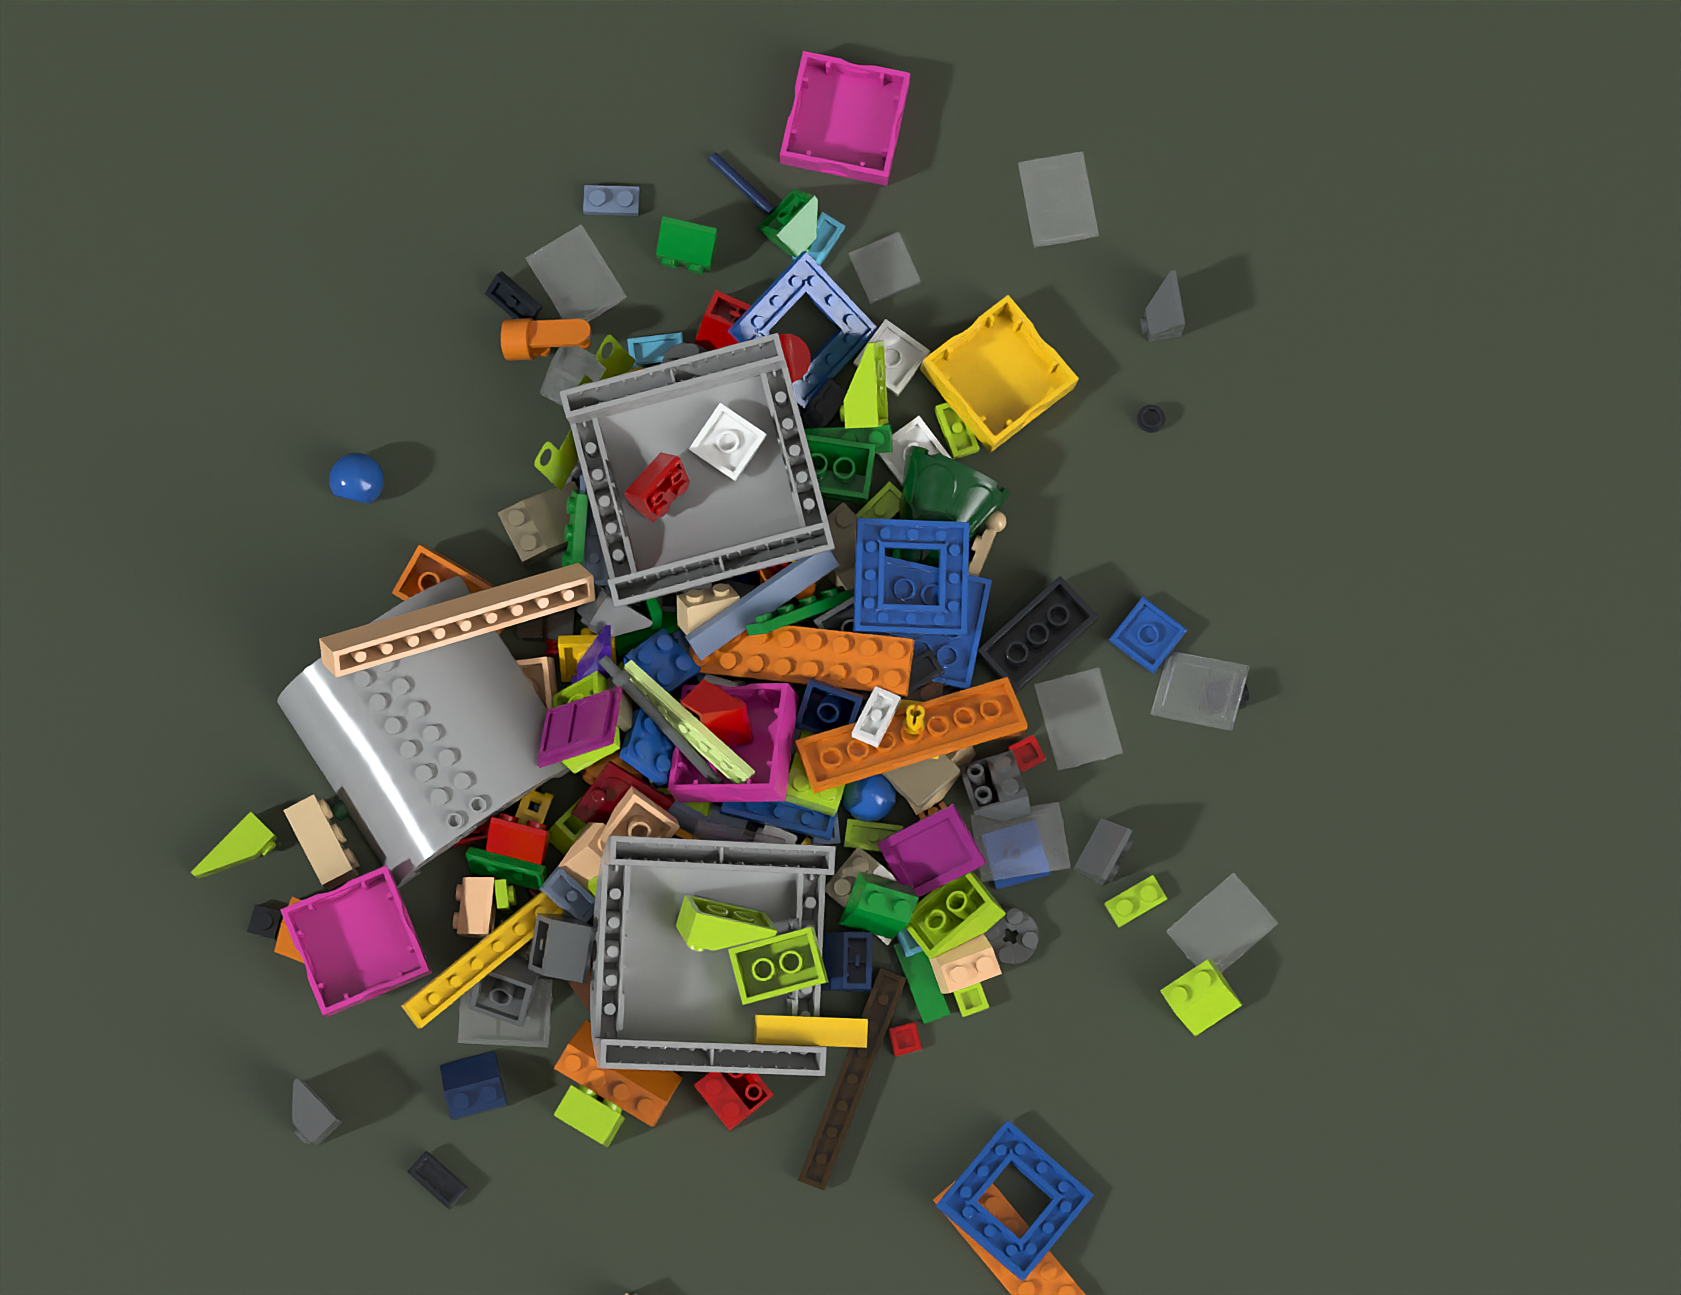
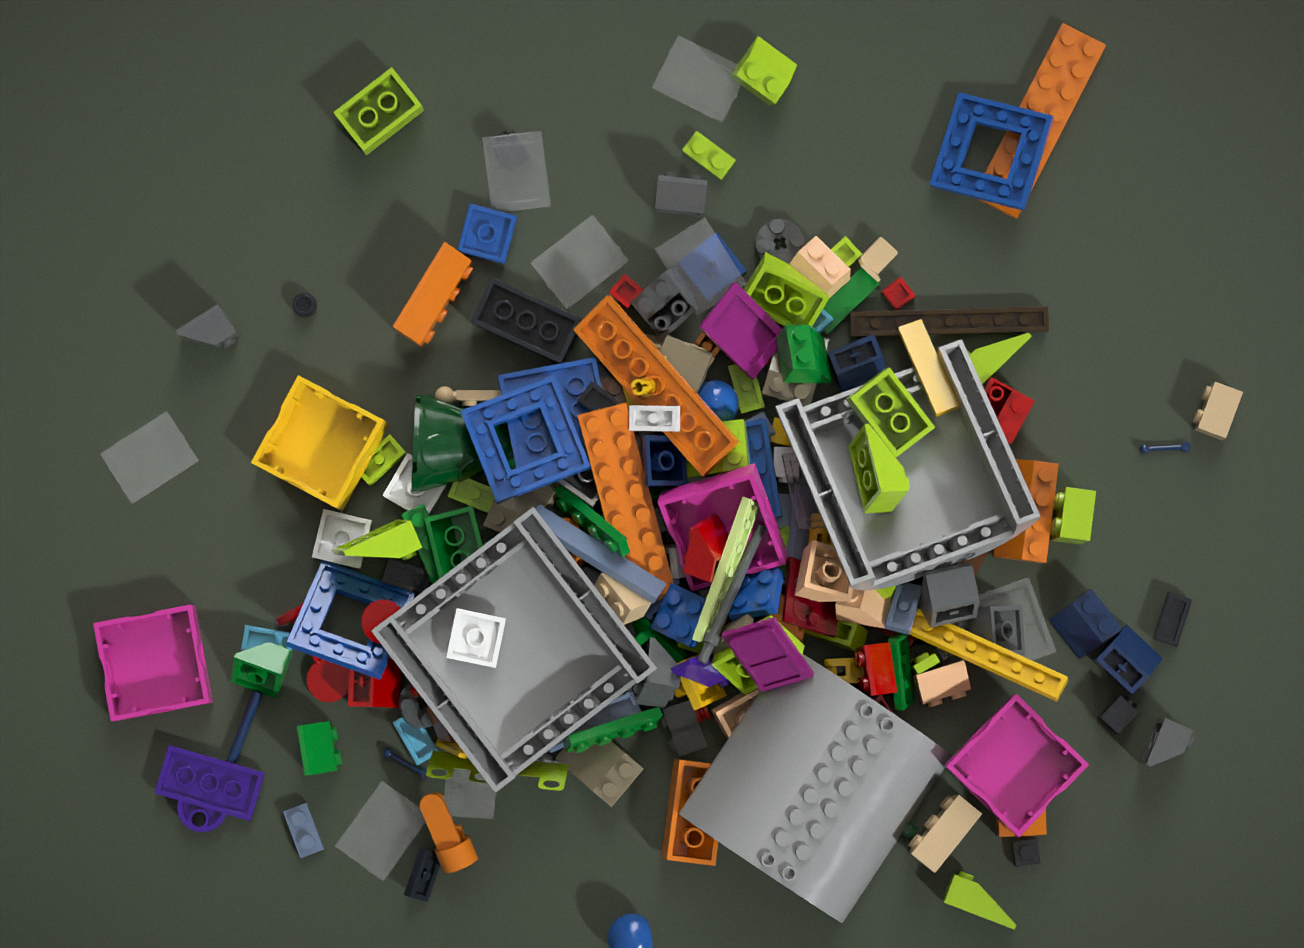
camera: 110 degrees left, 5 degrees up
(364, 1079) = (1119, 714): none -> black brick
(415, 1113) = (1128, 660): none -> dark blue slope
(456, 619) = (723, 794): light nougat brick -> none
(613, 1275) = (1185, 447): none -> dark blue hinge
(652, 316) = (388, 753): none -> dark blue hinge
(658, 486) = (537, 679): red slope -> none
(695, 123) = (208, 787): none -> dark purple plate
(754, 279) = (325, 679): none -> red piece
(794, 1102) = (992, 357): none -> lime slope
(884, 268) = (267, 577): clear tile -> none
(951, 1030) = (877, 257): none -> tan bracket
(1105, 551) = (433, 294): none -> orange slope
(1323, 574) = (378, 111): none -> lime brick

